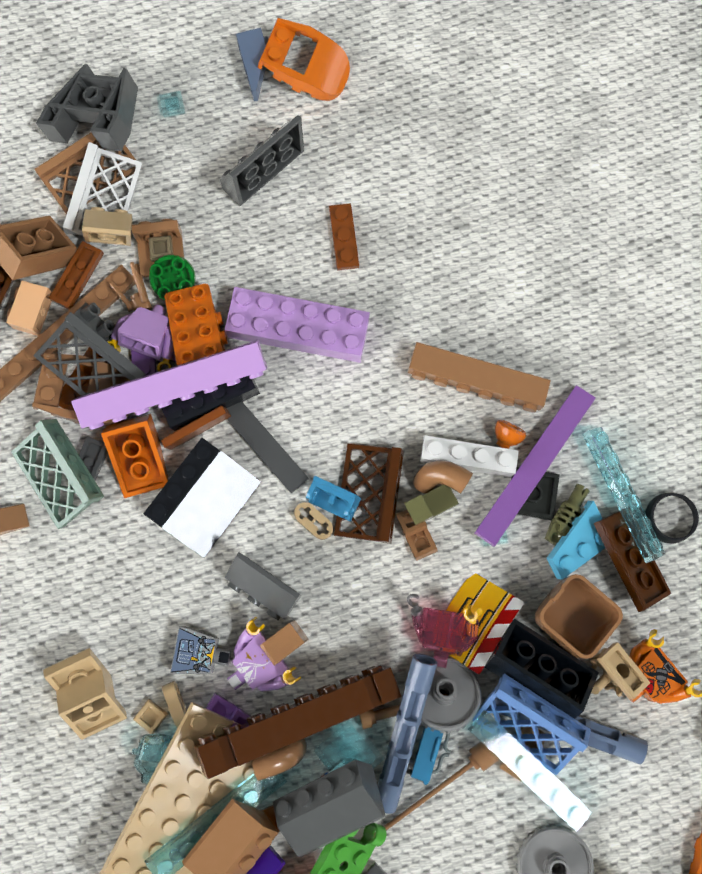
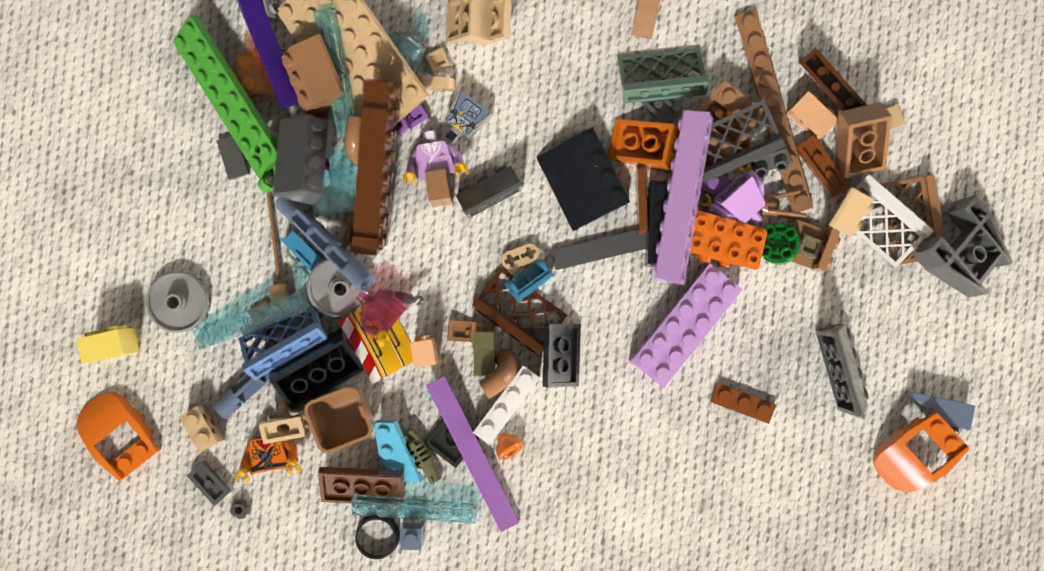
camera: 120 degrees right, 10 degrees up
(172, 104) = (939, 319): clear light blue tile -> none
(391, 427) = (561, 355): none -> black plate
(461, 565) = (424, 351): none -> light nougat brick
(479, 377) = (566, 447): medium nougat brick -> none
(651, 481) = (412, 536): none -> sand blue brick
(671, 763) = (201, 428): none -> tan brick

